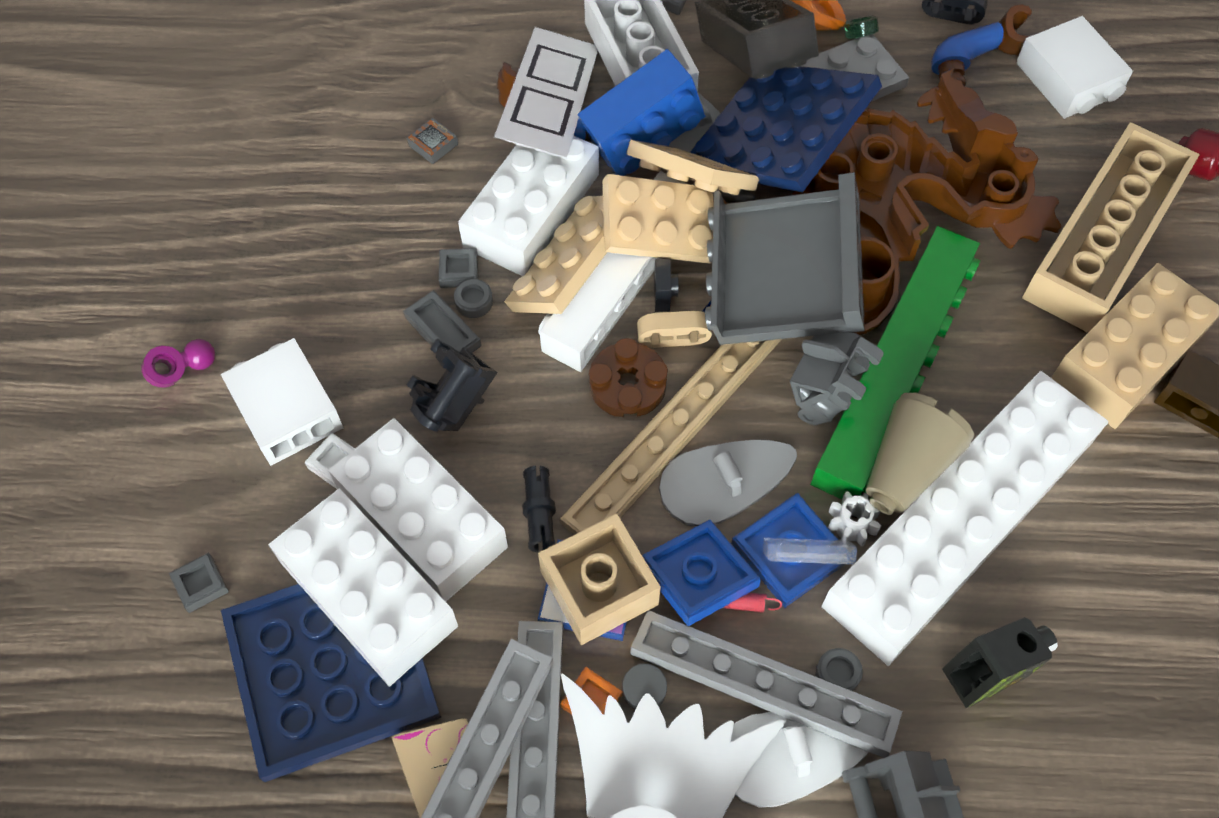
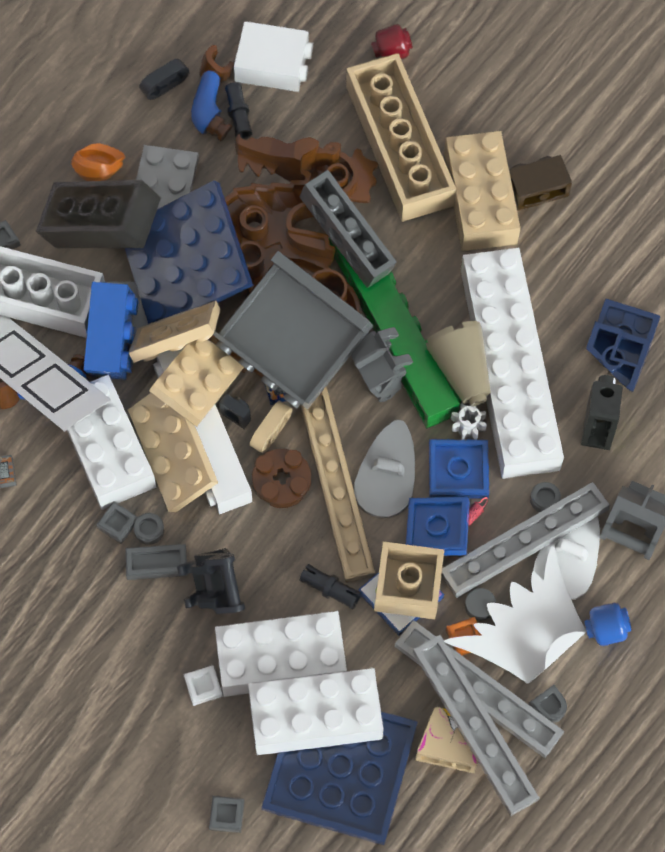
camera: 55 degrees left, 5 degrees up
(196, 354) = (54, 725): magenta plate -> none
(282, 401) = (137, 689): white brick -> none
(809, 551) = (473, 459): clear tile -> none
(861, 26) = (135, 147): clear green tile -> none
(950, 230) = (347, 228): none -> dark grey brick
(989, 77) = (238, 110): none -> black pin
(1116, 625) = (623, 340): none -> dark blue slope

